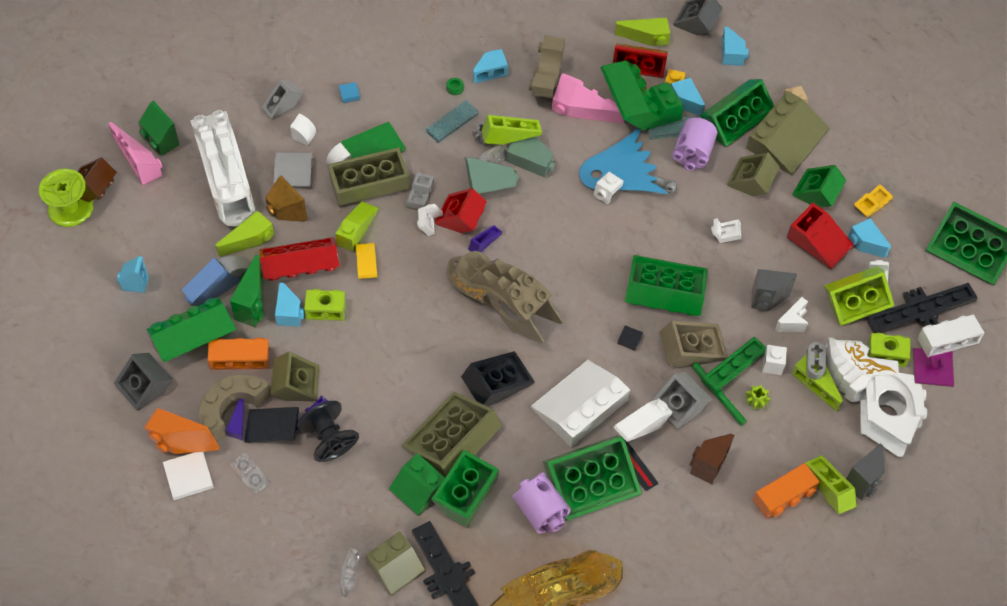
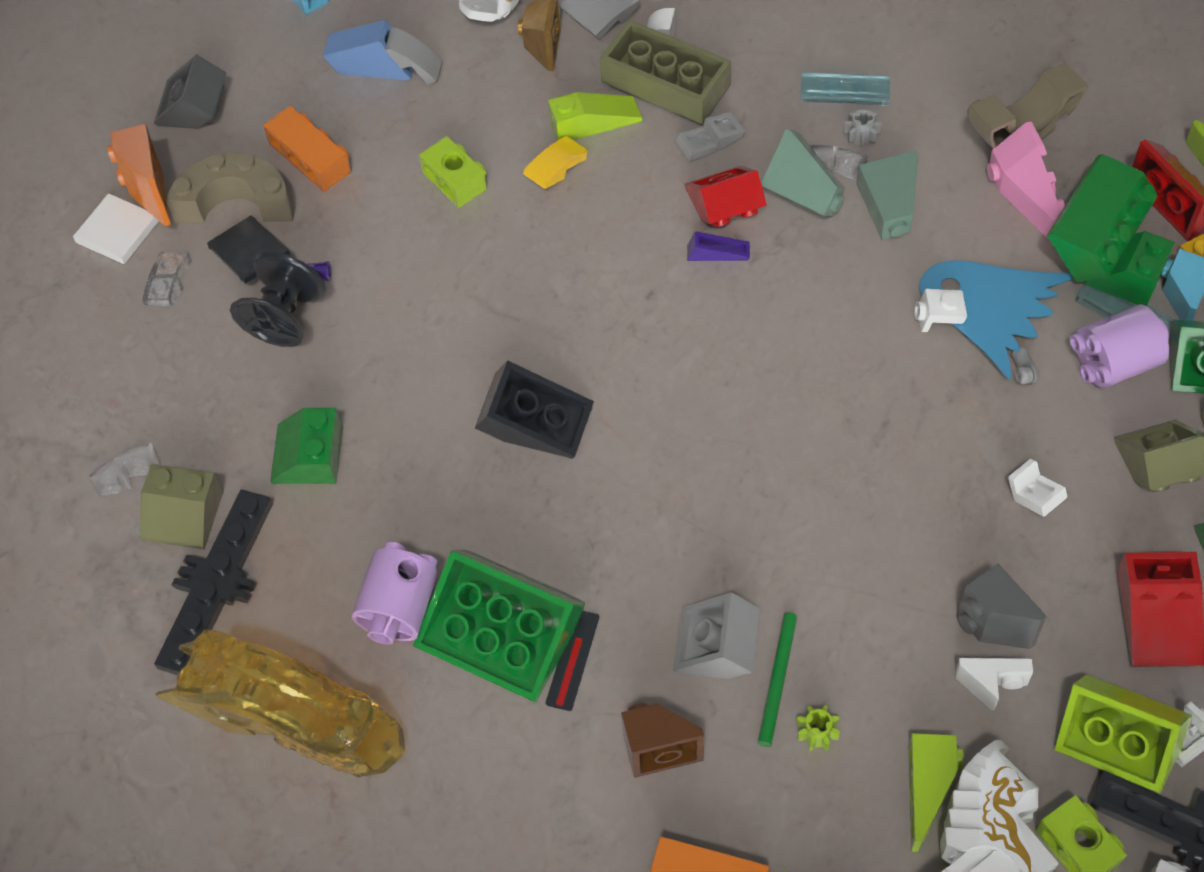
camera: 55 degrees right, 0 degrees up
(190, 329) = (288, 79): green slope -> none
(236, 424) = (221, 217): dark purple piece -> none
(248, 234) = (467, 34): lime slope -> none
(248, 297) = (390, 91): green slope -> none
(288, 308) = (410, 139): medium azure slope -> none
(294, 378) = (328, 221): olive slope -> none
(299, 258) = (486, 100): red slope -> none
(373, 141) = (730, 41): green tile -> none
(426, 218) = (675, 170): white bracket -> none
(452, 428) = (406, 430): olive slope -> none
(454, 86) = (897, 52): green tile -> none
(465, 488) = (340, 496): green slope -> none
(490, 66) = (964, 59): medium azure slope -> none
(501, 282) = (644, 304): dark tan animal -> none
(505, 130) = (887, 140): lime slope -> none
(581, 402) = (594, 529): white slope -> none
(630, 338) = (749, 509): black tile -> none
(644, 420) = (627, 614): white slope -> none
(666, 285) = (871, 487): green slope -> none
(692, 343) = (817, 586): dark tan slope -> none
(734, 365) = (839, 662): green tile -> none
(774, 360) = (897, 703): white brick -> none
(811, 360) = (949, 760): light grey beam -> none

